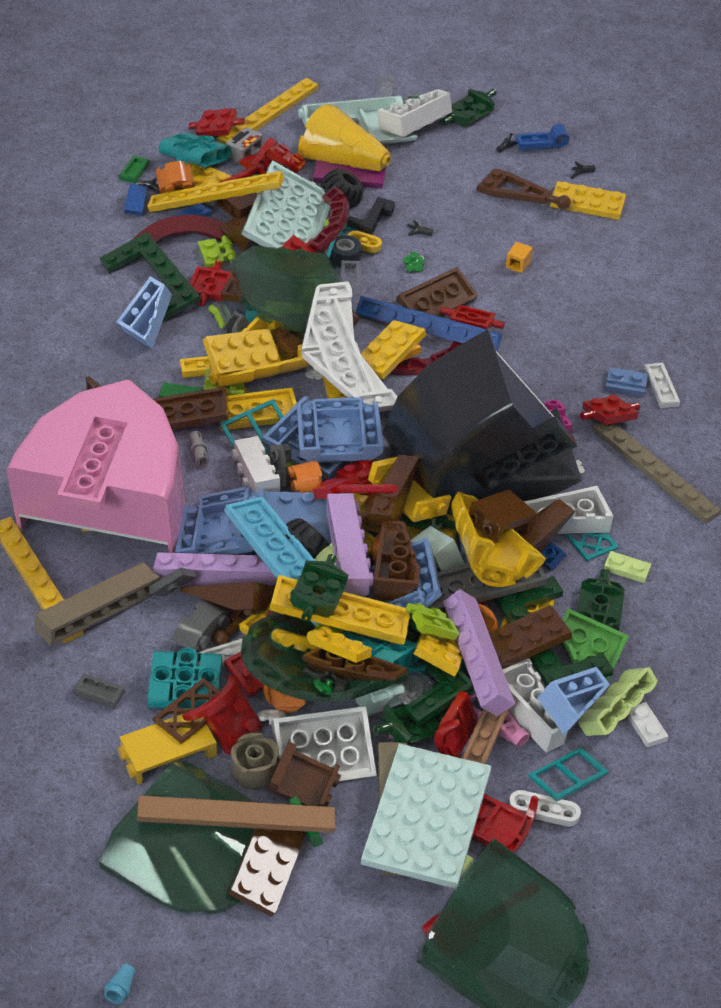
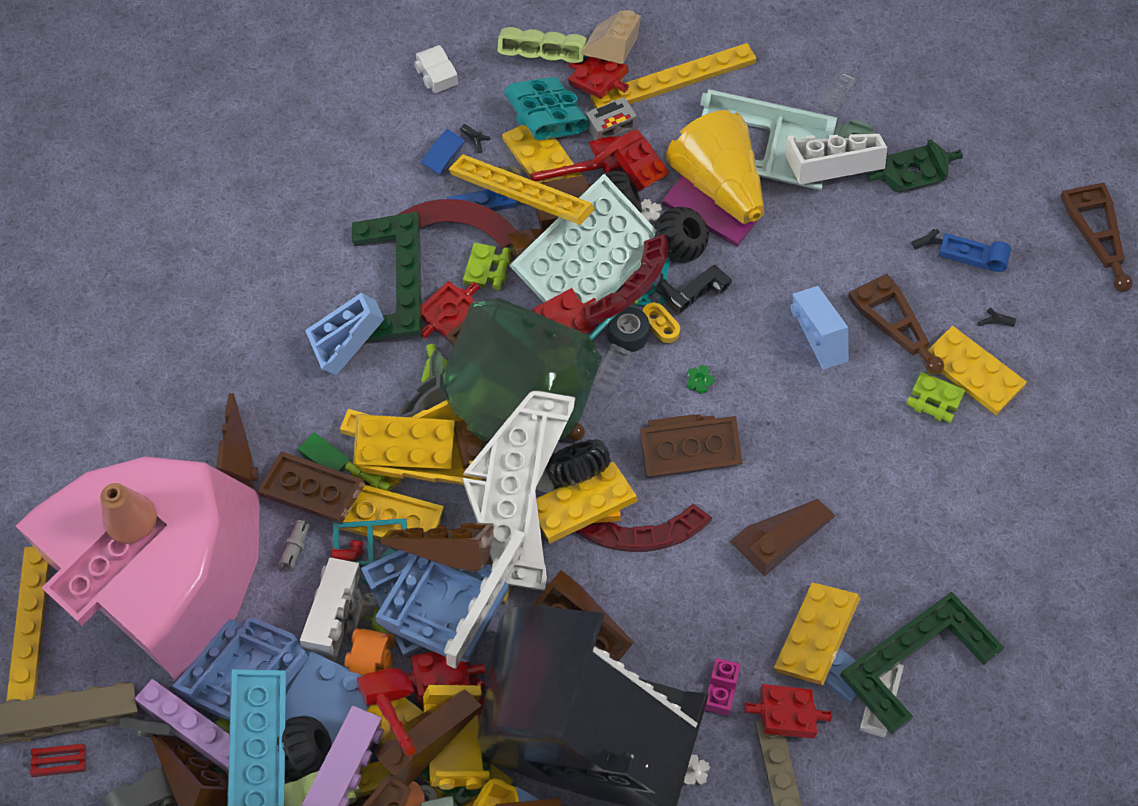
camera: 30 degrees right, 15 degrees up
(94, 155) = (436, 69): none -> white brick
(95, 418) = (126, 513): none -> nougat cone
(113, 633) = (35, 761): none -> red tile
(134, 169) = (471, 105): green tile -> none
(159, 119) = (535, 43): none -> yellowish green brick
(174, 177) = (495, 145): orange brick -> none
(213, 95) = (614, 37): none -> tan slope
(243, 433) = (351, 553): none -> red arm
(330, 389) = (457, 548): none -> reddish brown wedge
(370, 409) = (481, 605): none -> white plate
(372, 326) = (578, 463): none -> black gear
(419, 229) = (739, 330): pearl dark grey bar -> none
(433, 324) = (655, 485): blue tile -> none
(473, 317) = (711, 497): red plate -> none
(475, 206) = (822, 326): none -> light blue wedge
(519, 257) = (829, 425): light orange brick -> none
(531, 327) = (779, 536): none -> reddish brown wedge
(574, 221) = (937, 392): none -> lime plate
(596, 88) = (1090, 198): none -> reddish brown plate
(596, 365) = (817, 633): none -> yellow plate
(646, 365) = (865, 672): none -> dark green plate

